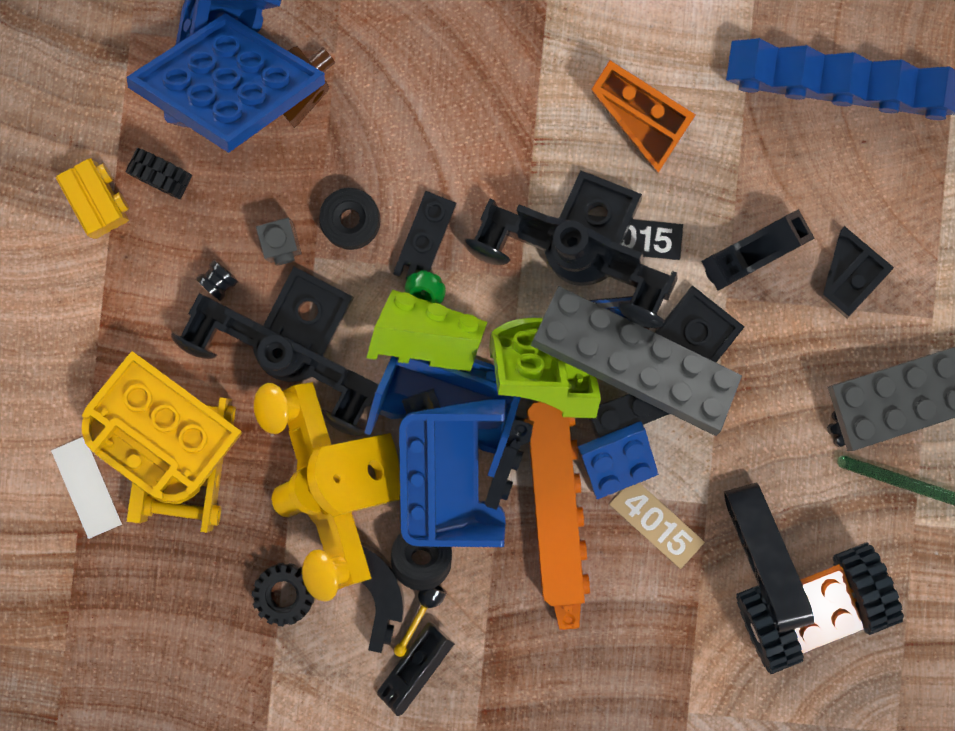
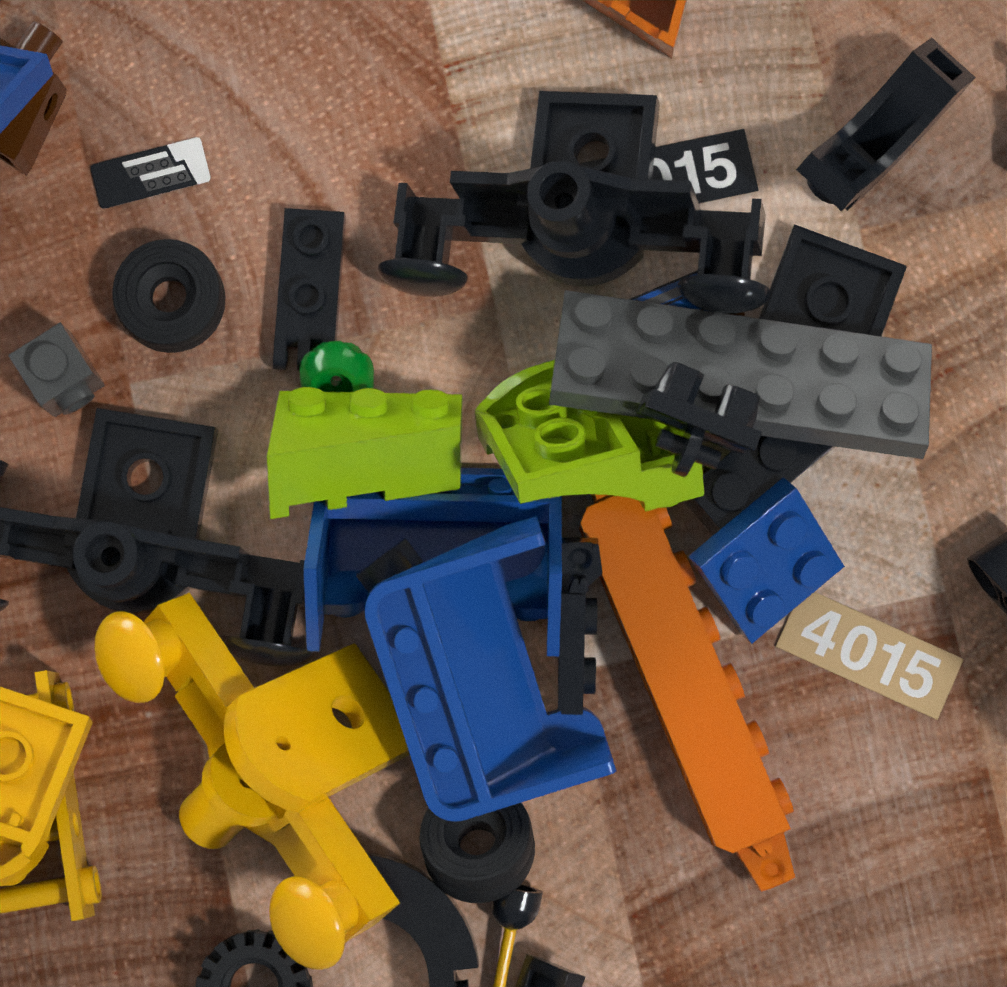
camera: 15 degrees left, 5 degrees down
(360, 147) = (150, 173): none -> sticker
(620, 388) = (674, 406): none -> black hips

